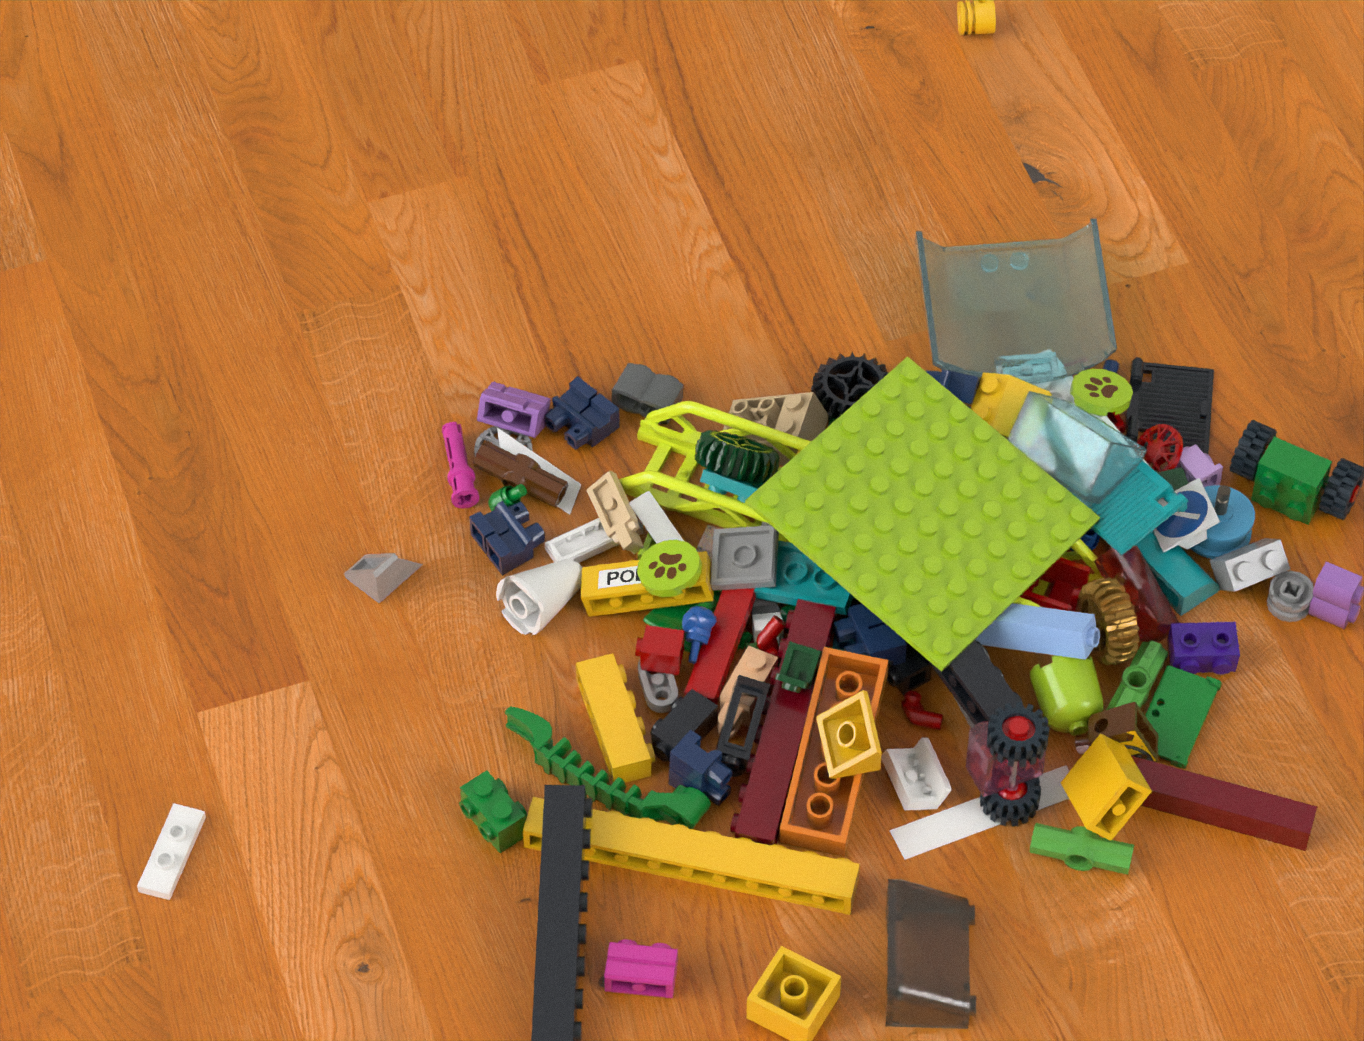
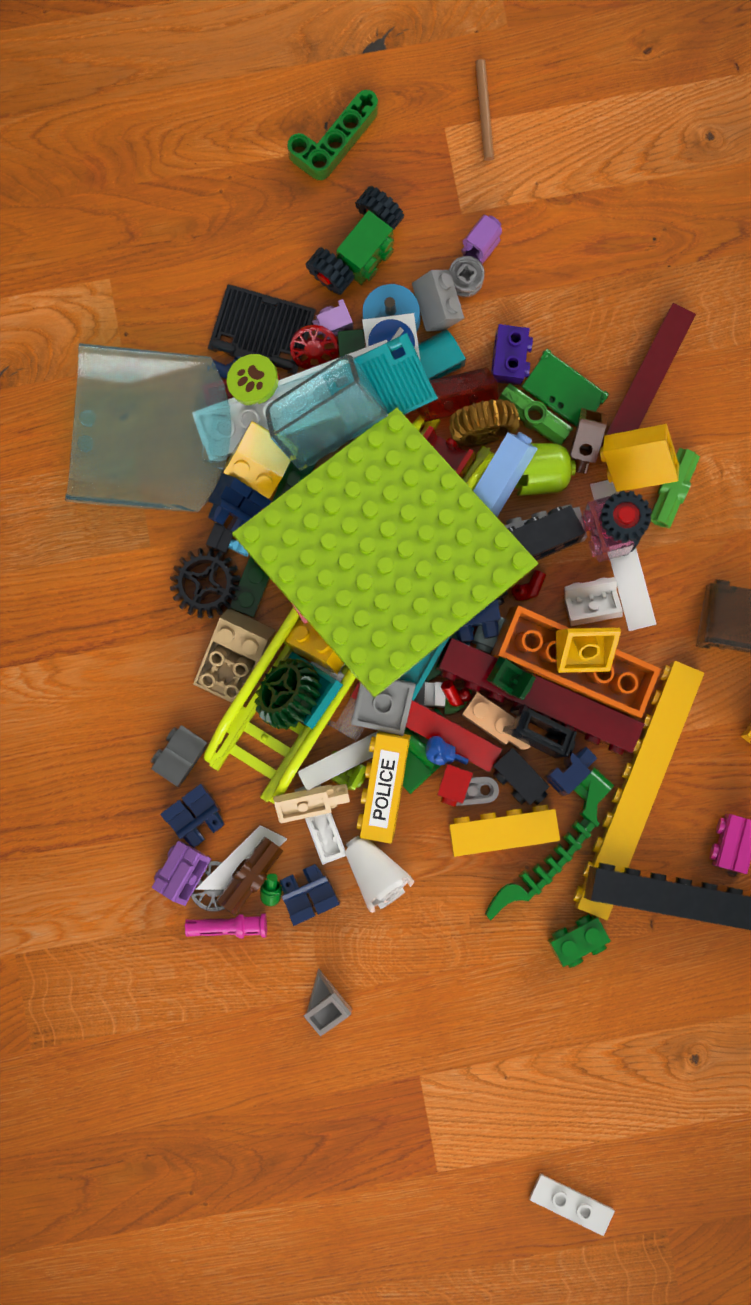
camera: 80 degrees left, 30 degrees up
(669, 568) = (389, 767): lime tile -> none

